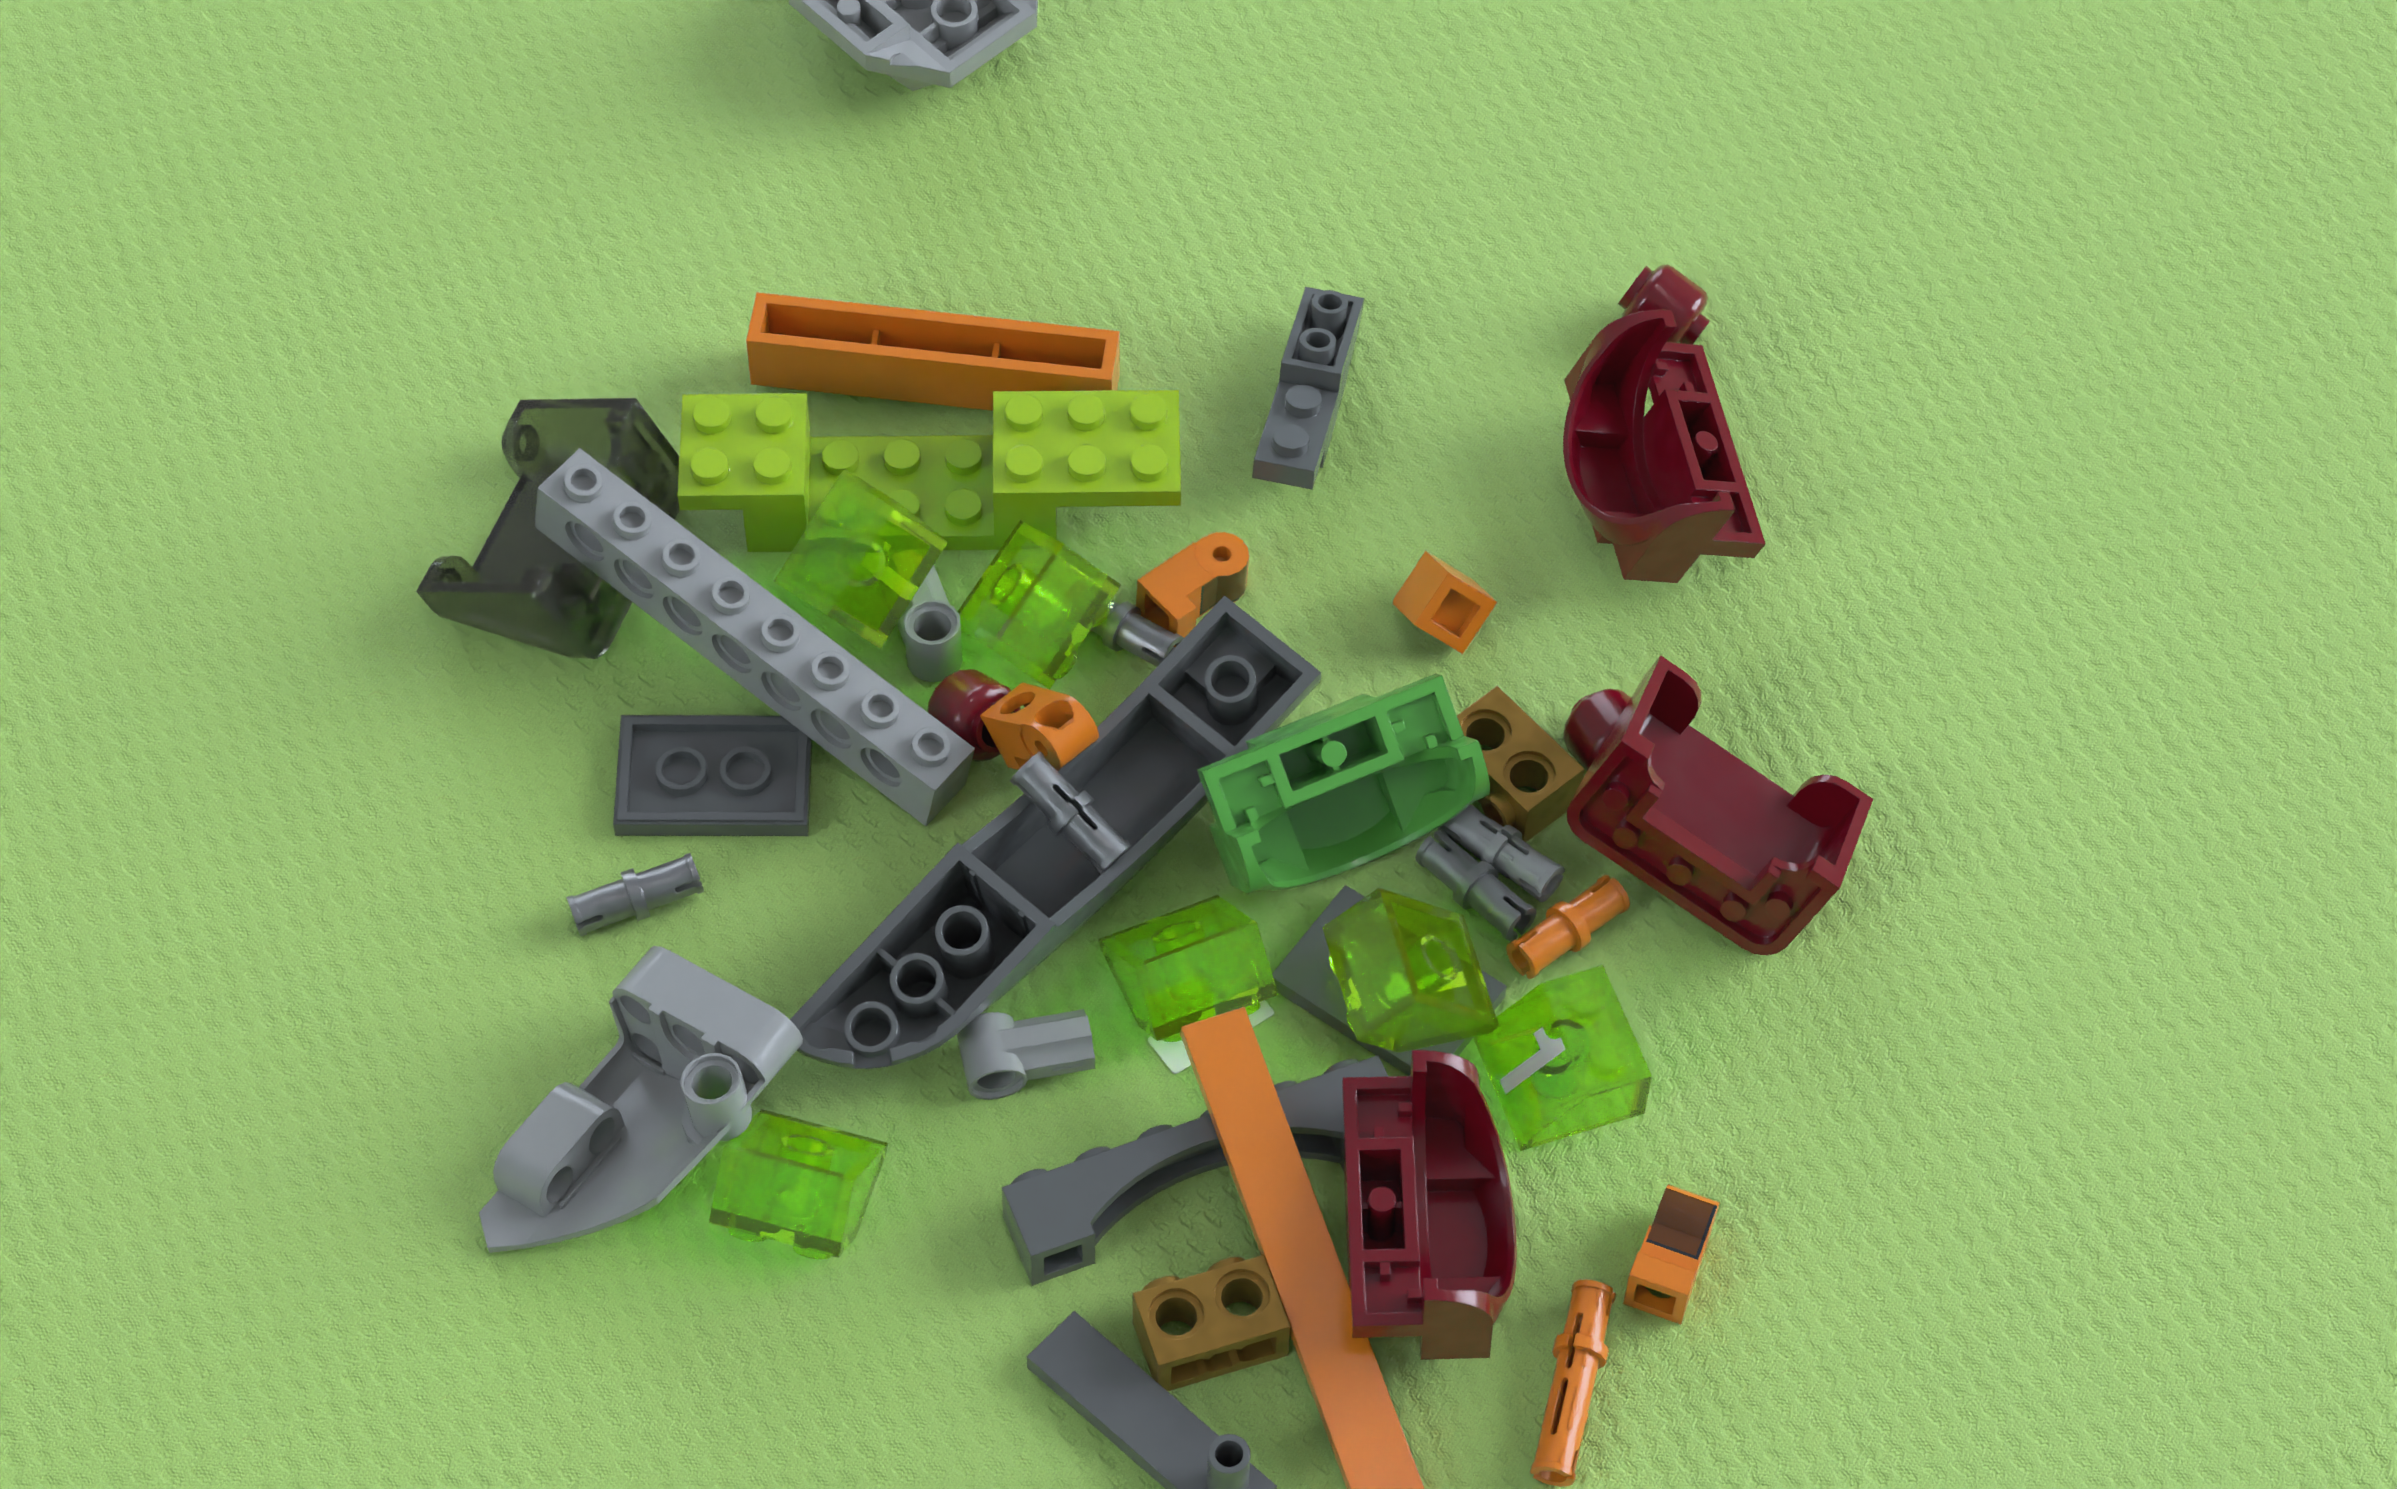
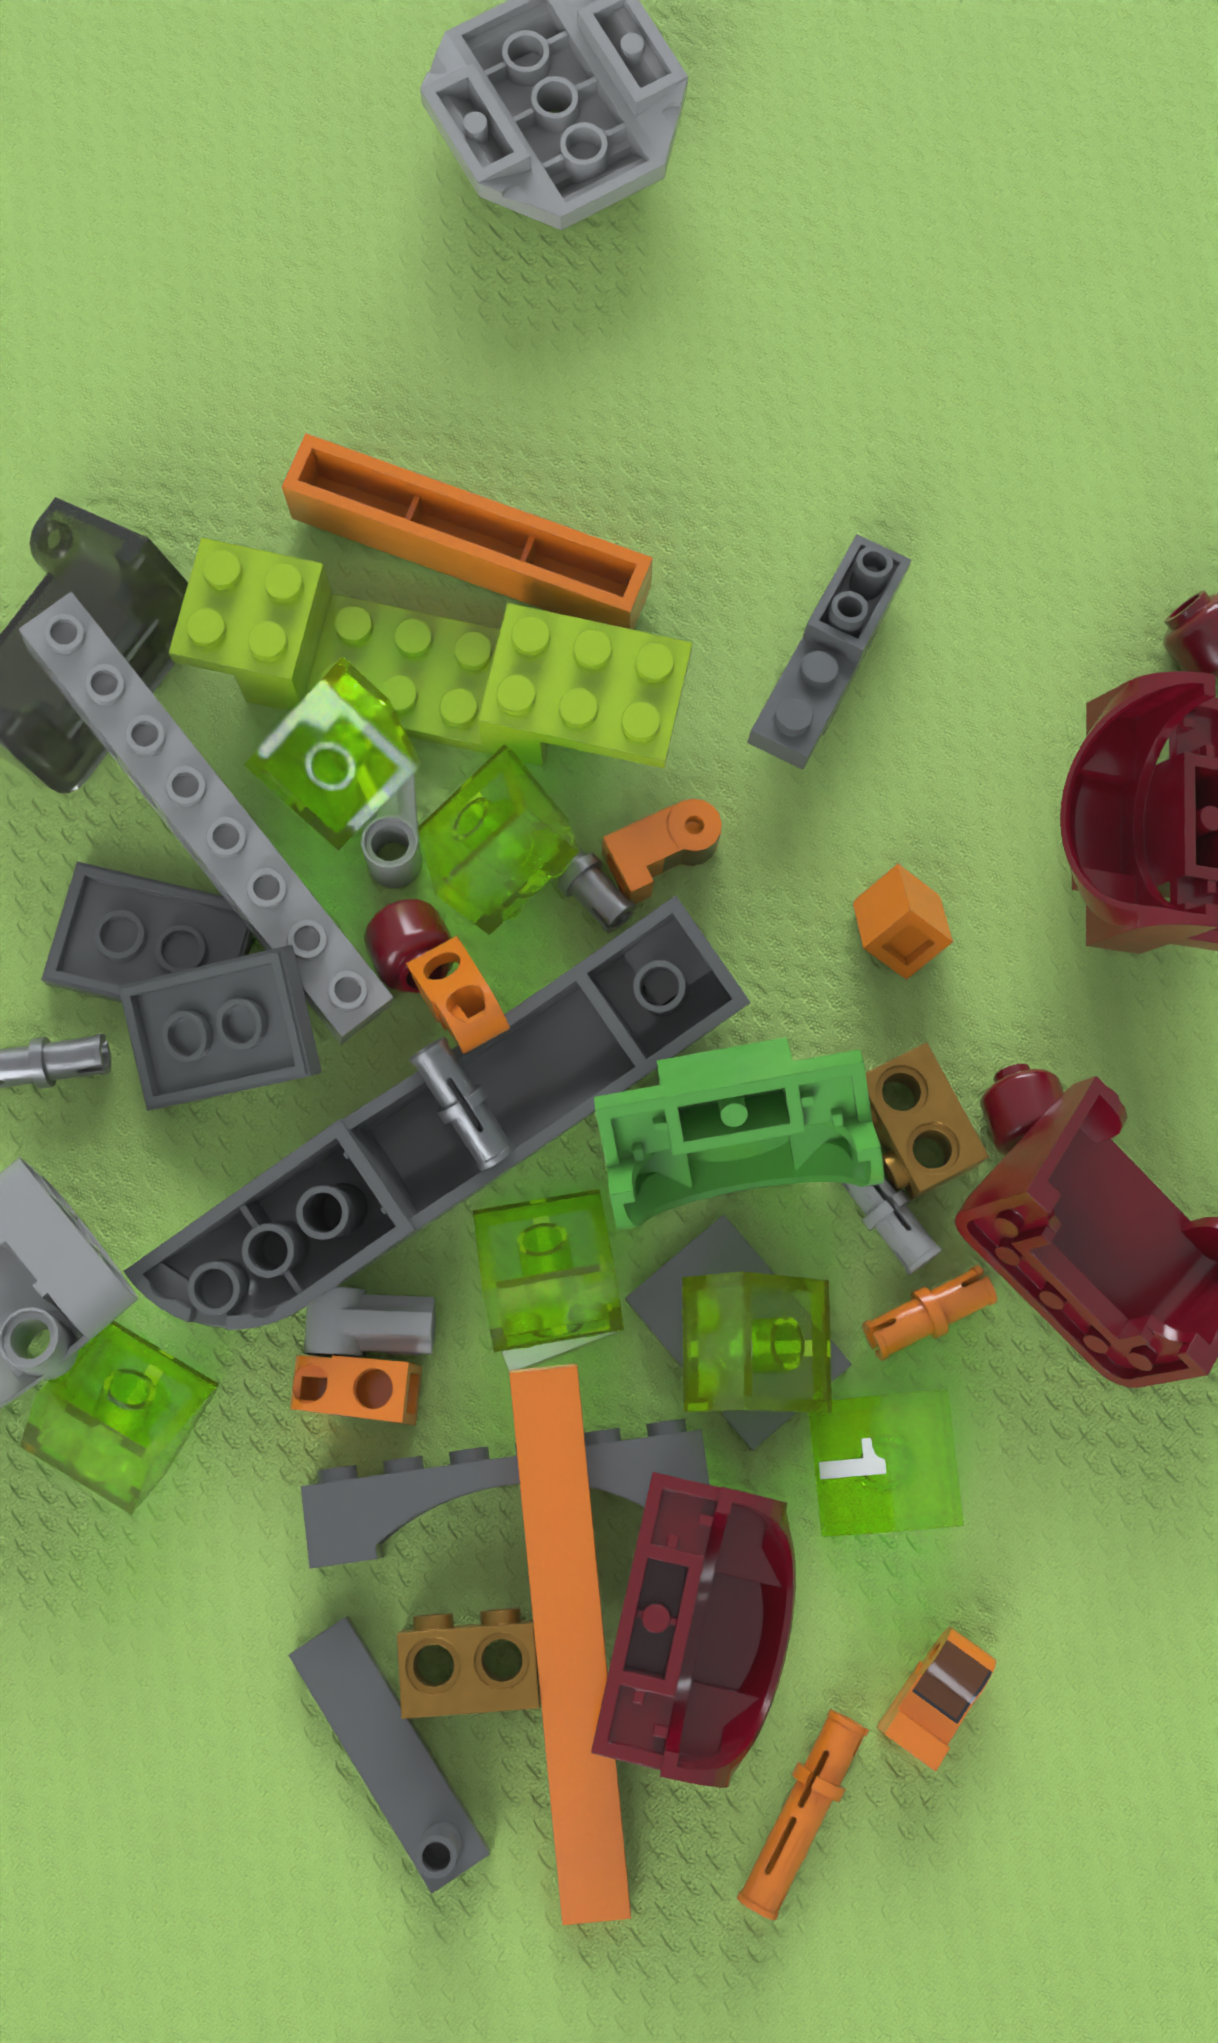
camera: 15 degrees right, 20 degrees up
(810, 814) = (220, 1028): none -> dark grey tile
(1028, 1106) = (357, 1388): none -> orange leg
(1475, 885) = (851, 1245): flat silver pin -> none

